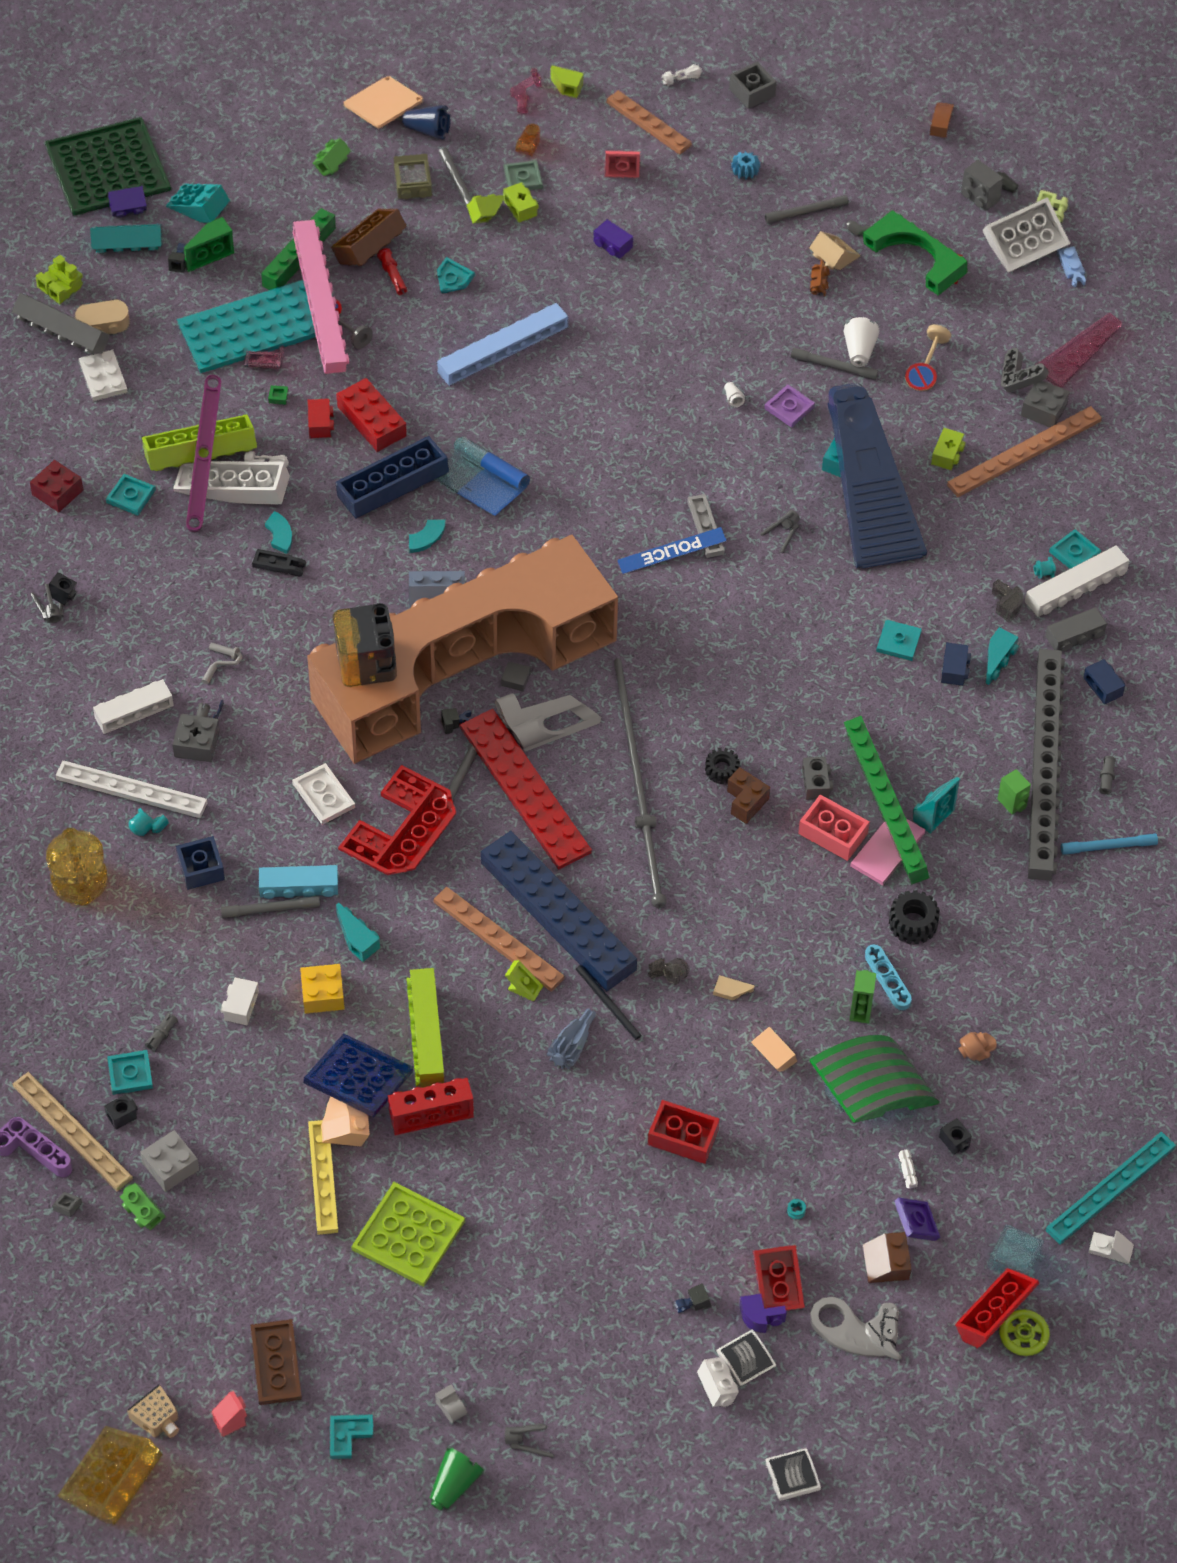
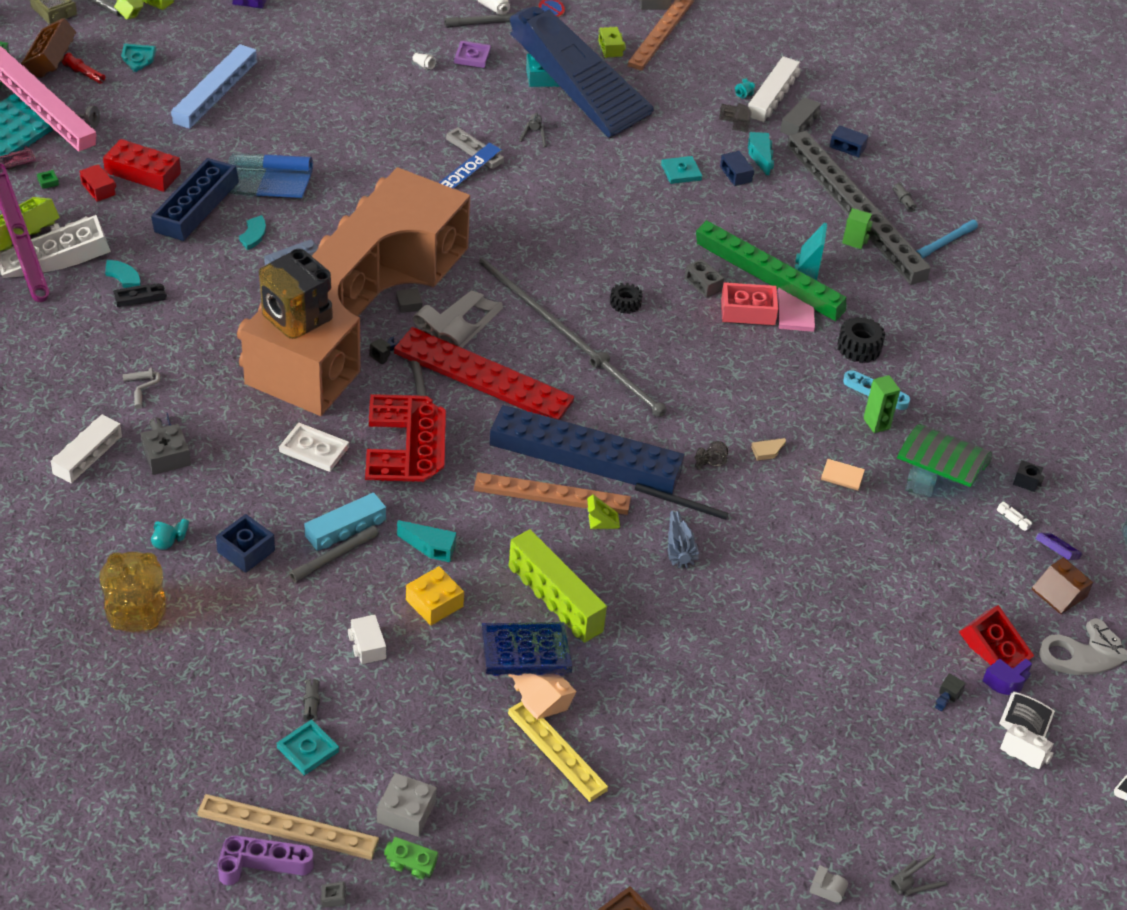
camera: 35 degrees left, 10 degrees down
(120, 1119) = (322, 792): black brick -> none
(131, 789) = (131, 514): white plate -> none
(408, 1234) = (671, 760): lime plate -> none
(432, 1112) = (609, 643): red brick -> none
(683, 1131) = (829, 566): red brick -> none
(749, 794) = (663, 306): reddish brown brick -> none
(798, 1214) = (956, 586): teal bush -> none
(977, 1045) = (985, 406): nougat head -> none
(1074, 549) = (754, 71): teal plate -> none

